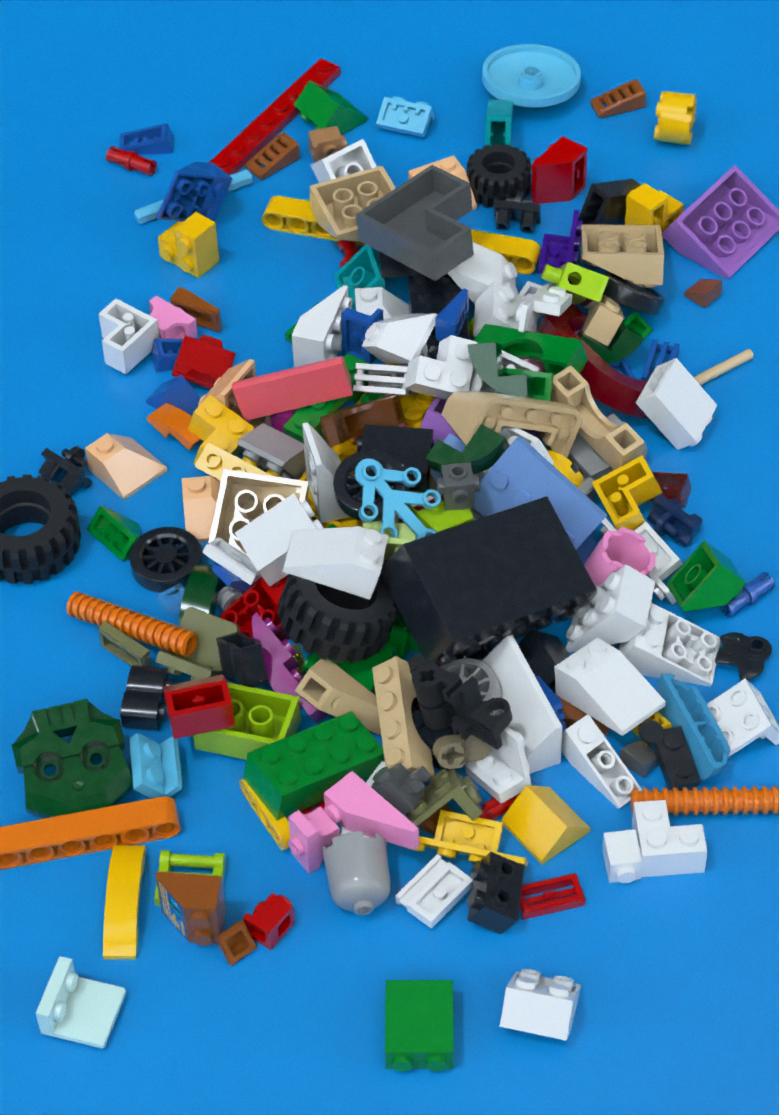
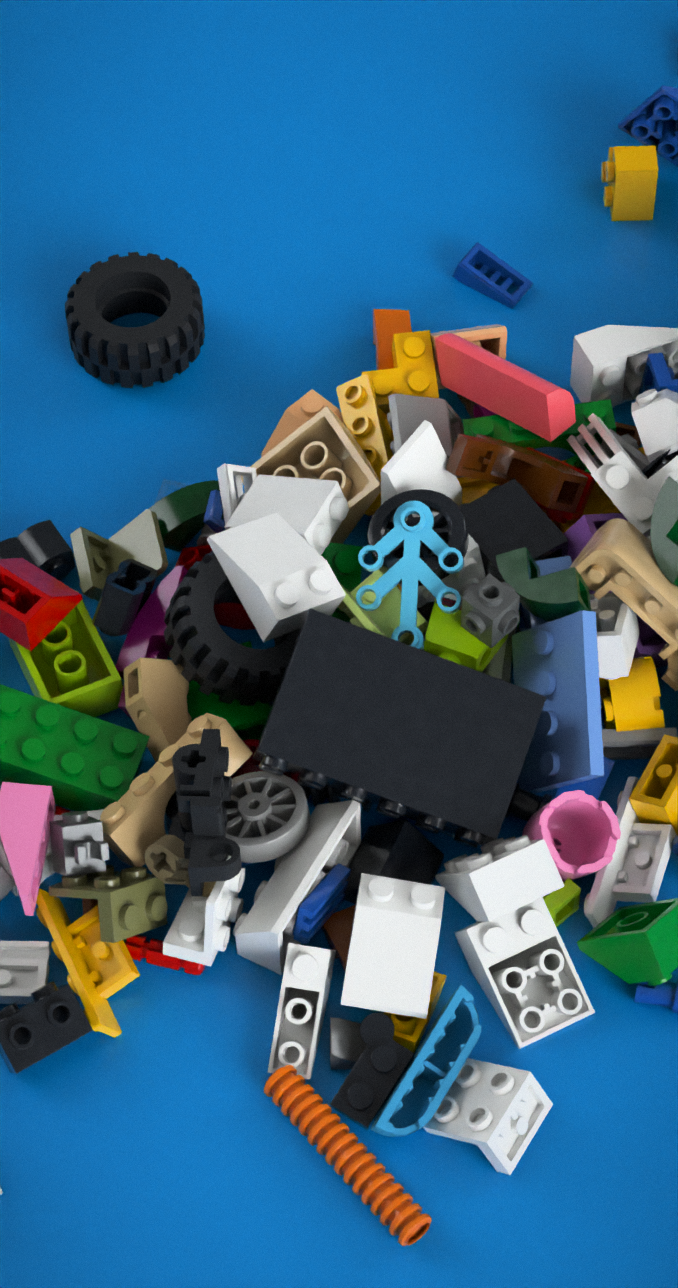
camera: 50 degrees right, 5 degrees up
(73, 475) = (252, 298): black hips -> none
(114, 531) = (215, 392): green slope -> none
(122, 464) = (304, 335): light nougat slope -> none
(123, 646) = (73, 498): olive tile -> none
(126, 335) = (460, 222): white brick -> none
(132, 624) = (101, 485): orange piece -> none
(166, 564) = (200, 461): black wheel -> none
(172, 320) = (515, 239): bright pink brick -> none
(176, 393) = (427, 311): blue slope -> none
(198, 309) = (553, 243): dark orange slope -> none
(202, 360) = (497, 298): red piece -> none
(543, 822) = (184, 1013): yellow slope -> none
(553, 900) = (118, 1104): red tile -> none
(622, 856) = (193, 1117): white brick -> none
(667, 848) = (238, 1141): white brick -> none
(741, 652) = (582, 1051): black plate -> none

